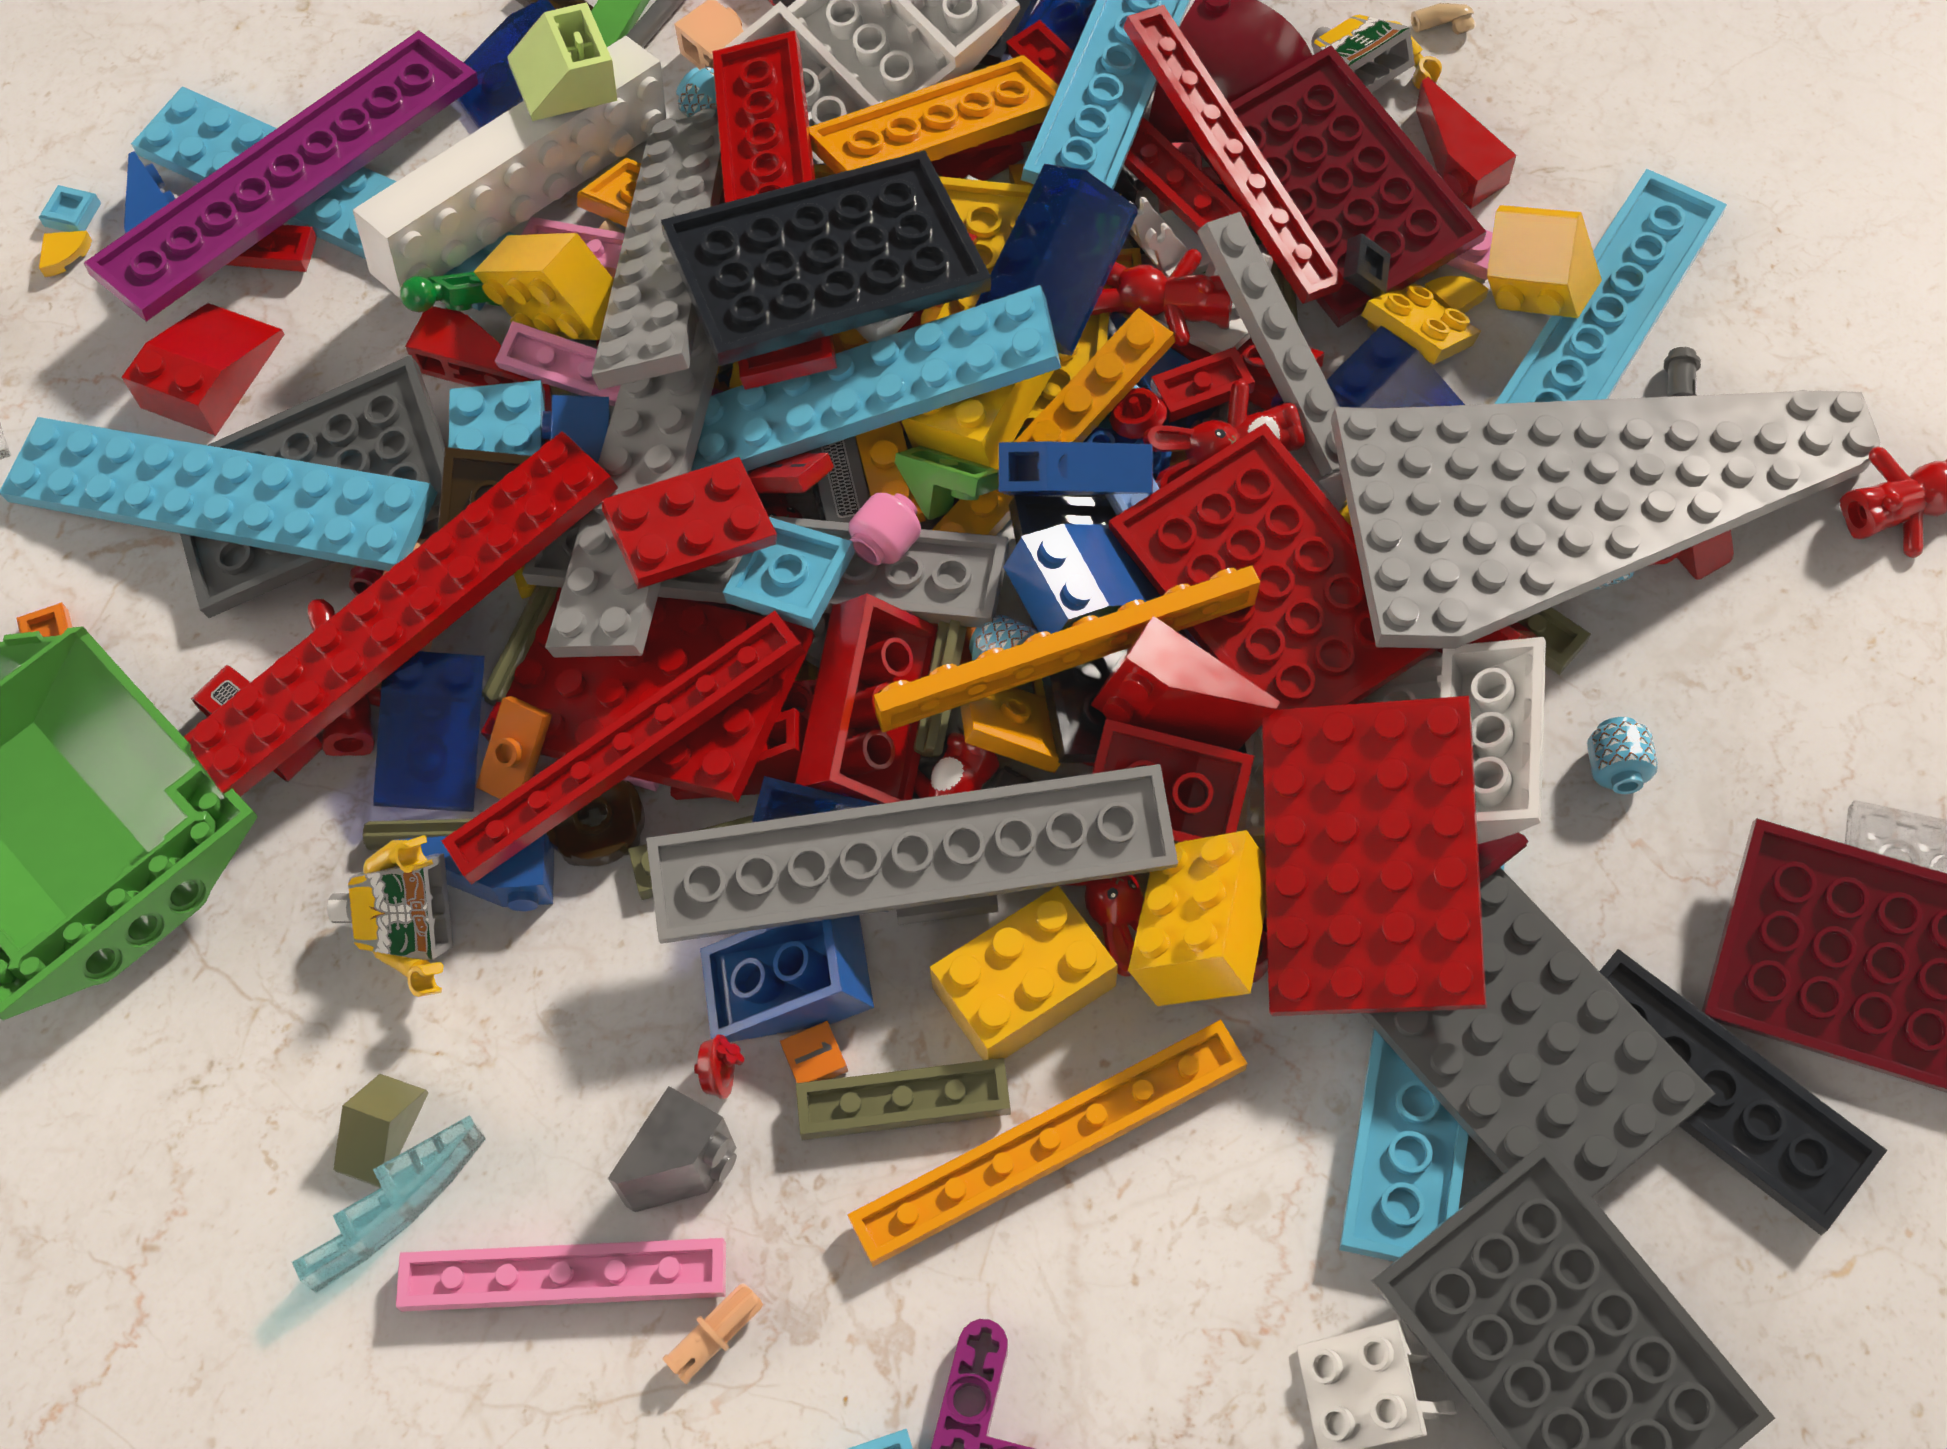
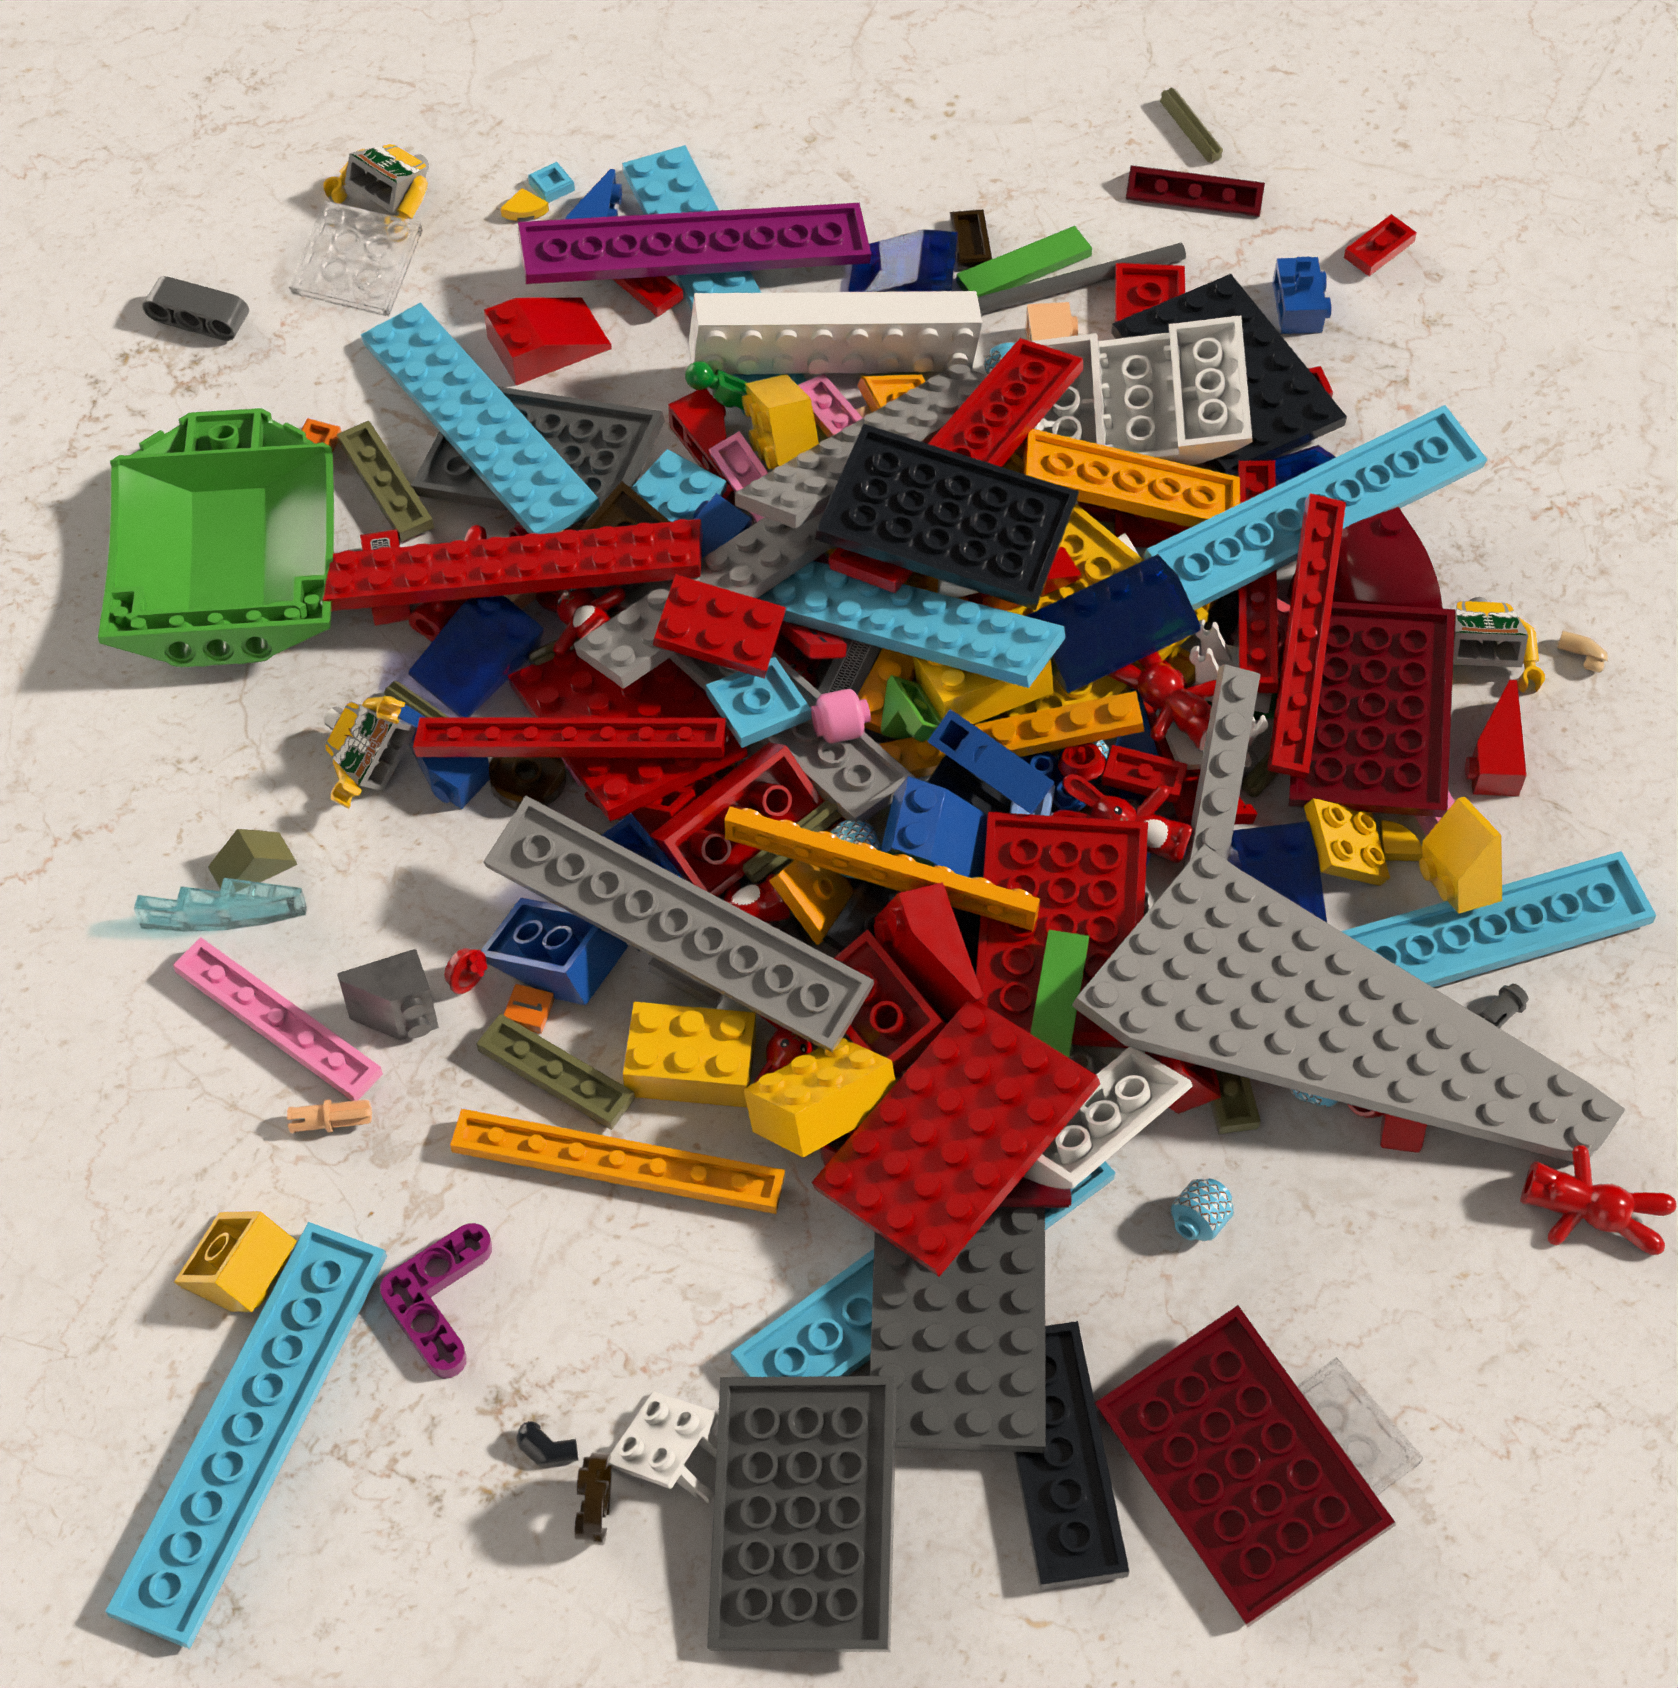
camera: 35 degrees right, 5 degrees down
(163, 624) = (385, 481): none -> olive plate
(512, 615) = (579, 611): none -> red animal
(513, 747) = (517, 693): orange plate -> none
(563, 64) = (907, 284): yellowish green slope -> none
(1334, 642) = (1058, 989): none -> bright green tile
(1366, 265) = (1333, 774): black plate -> none

